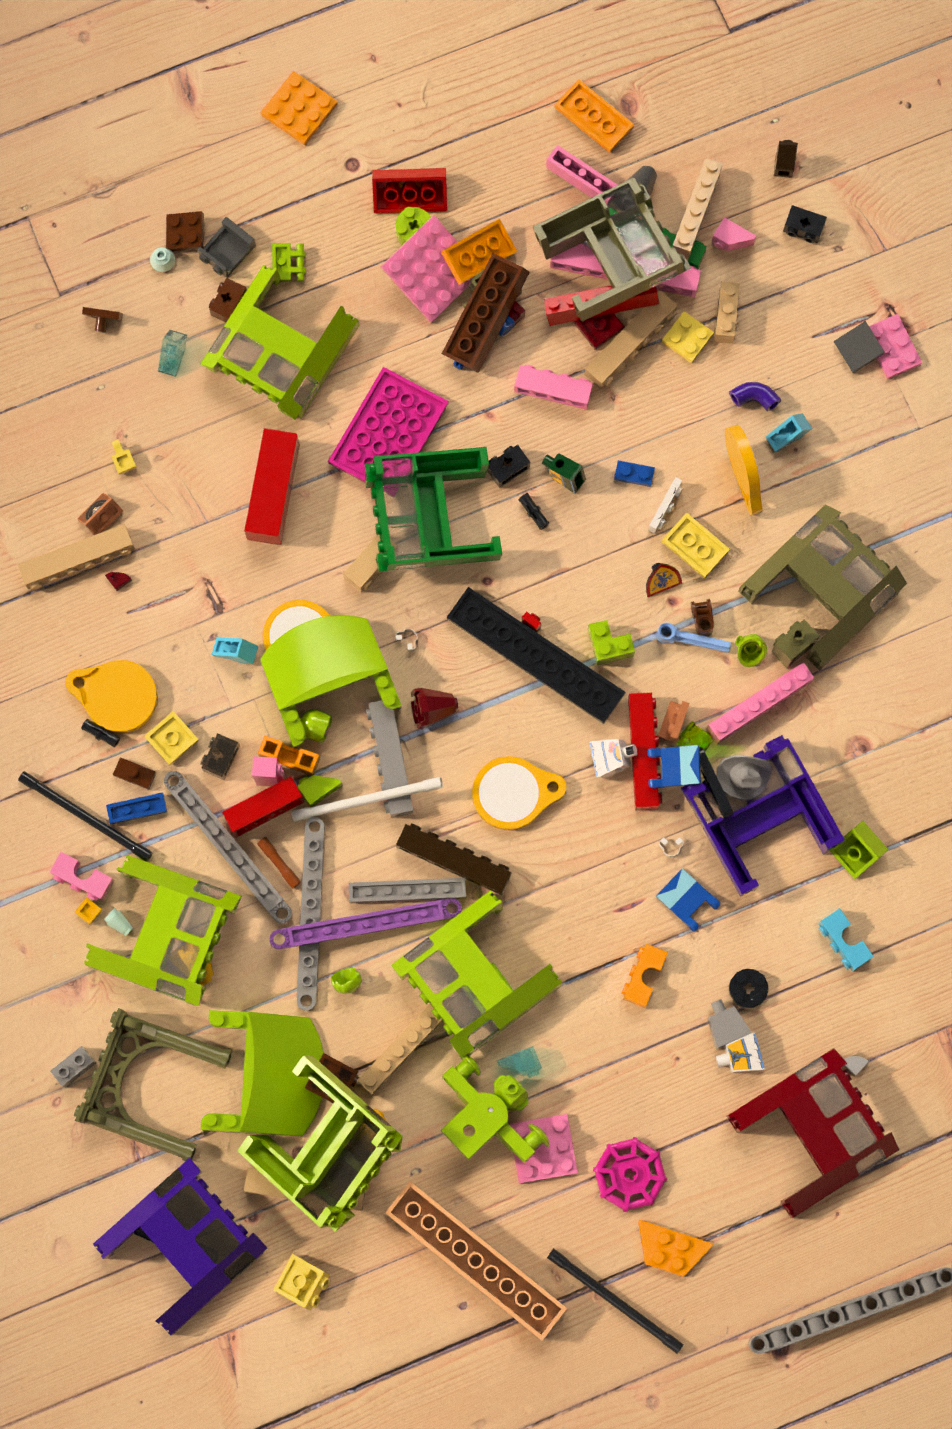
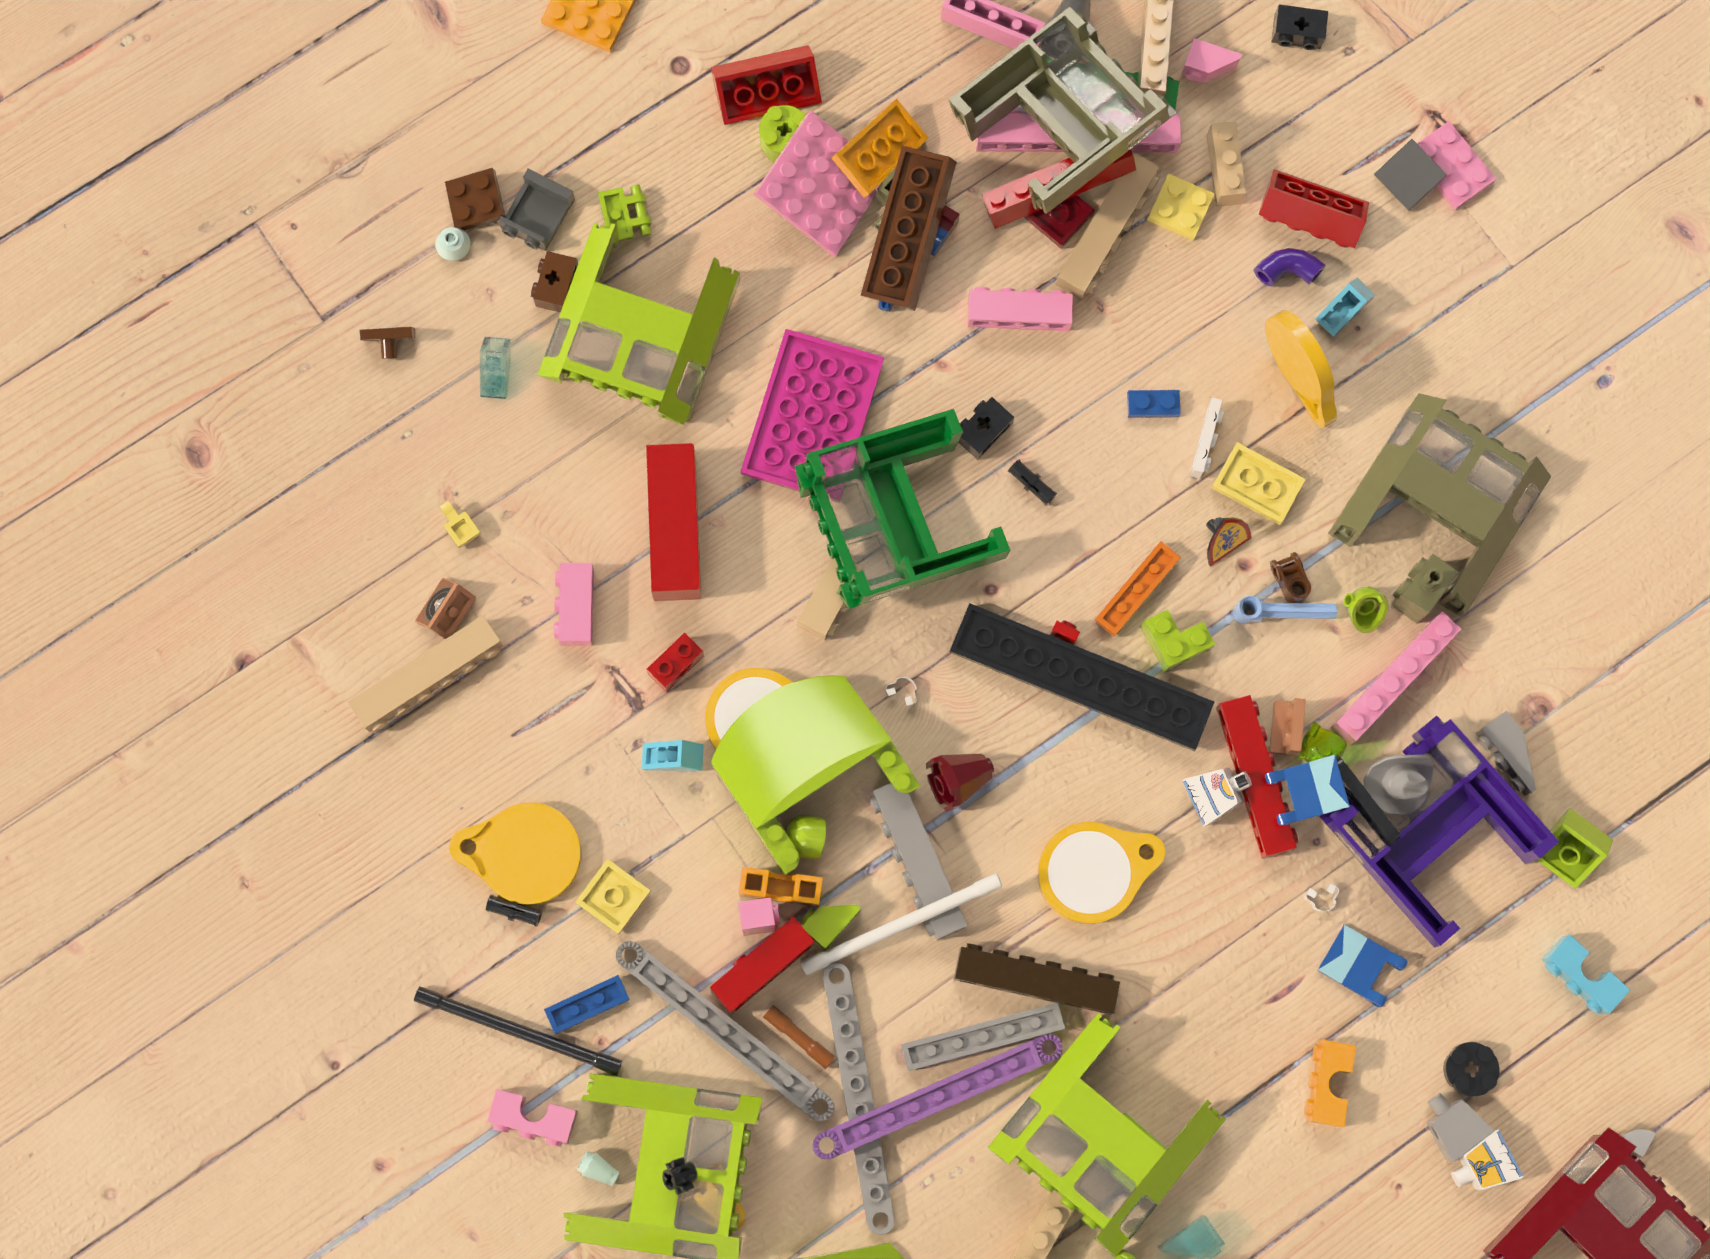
camera: 20 degrees left, 0 degrees up
(88, 911) = (552, 1162): yellow plate -> none
(118, 579) = (490, 693): dark red tile -> none
(134, 773) = (572, 956): reddish brown tile -> none
(170, 933) = (679, 1175): none -> black gear
(190, 530) = (574, 604): none -> bright pink brick
(220, 767) = (695, 895): clear smoke brick -> none
(251, 585) = (675, 662): none -> red brick
(346, 980) = (929, 1180): lime hair -> none
(565, 471) = (1063, 420): dark green torso -> none
(590, 601) = (1137, 589): none -> orange plate
(783, 357) = (1314, 209): none -> red slope
(829, 767) = (1508, 746): none -> light grey slope

